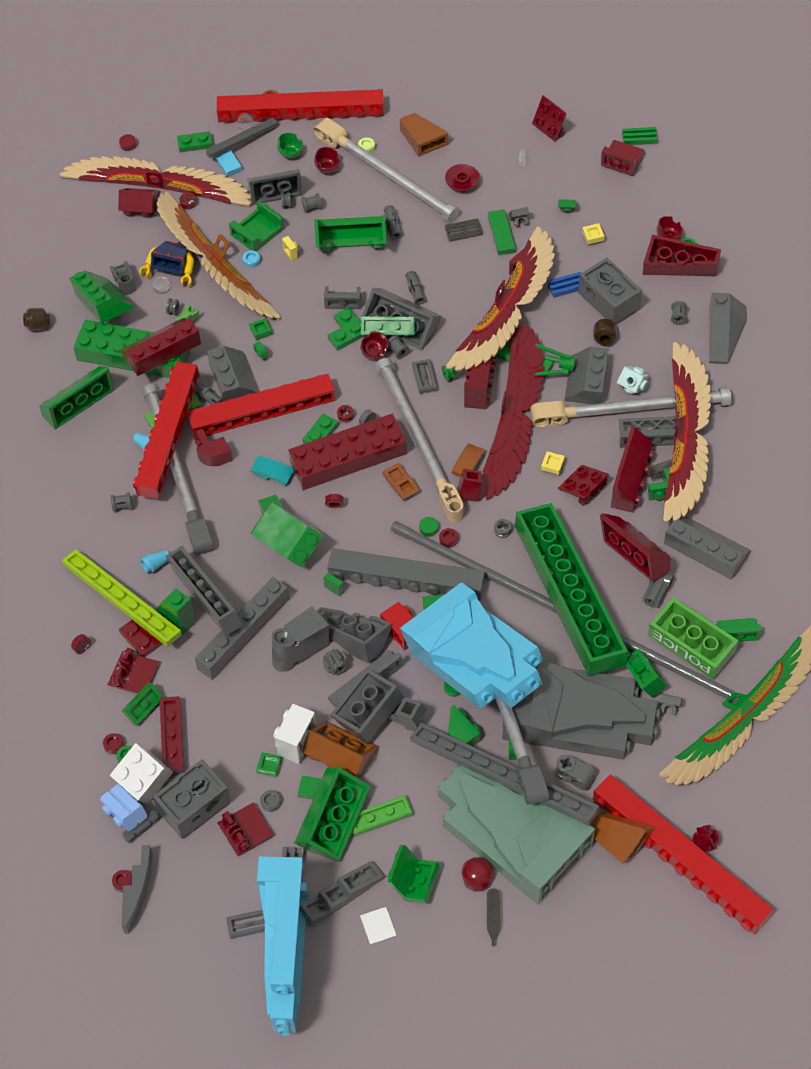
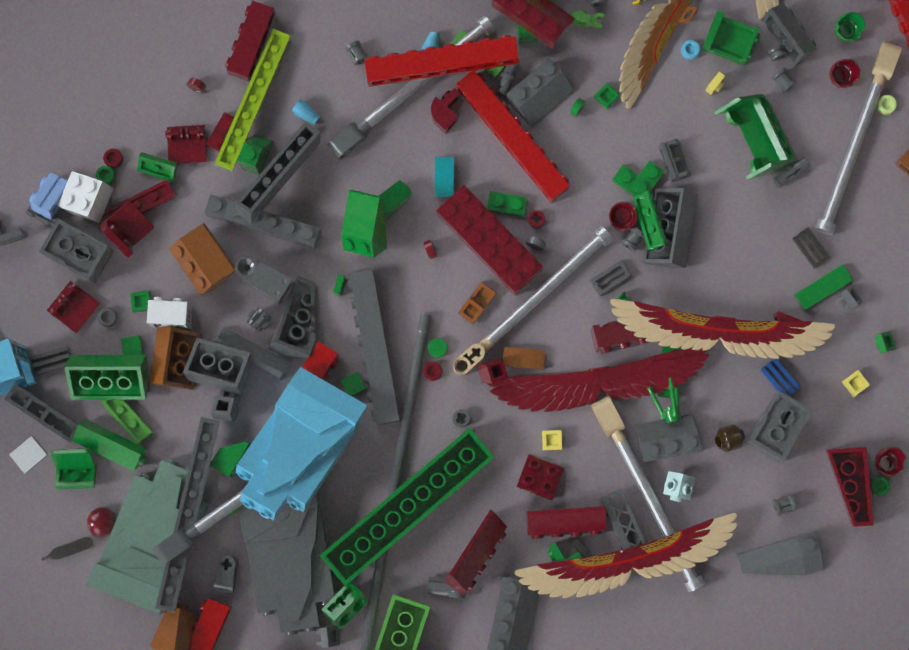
camera: 70 degrees right, 25 degrees up
(63, 584) = (250, 41): none -> dark red brick
(190, 746) = (126, 227): none -> dark red bracket
(254, 686) = (202, 259): none -> dark orange slope
(402, 834) = (110, 445): none -> green brick
(415, 287) = (715, 227): dark grey pin -> none
(462, 177) = (884, 215): dark red dish -> none

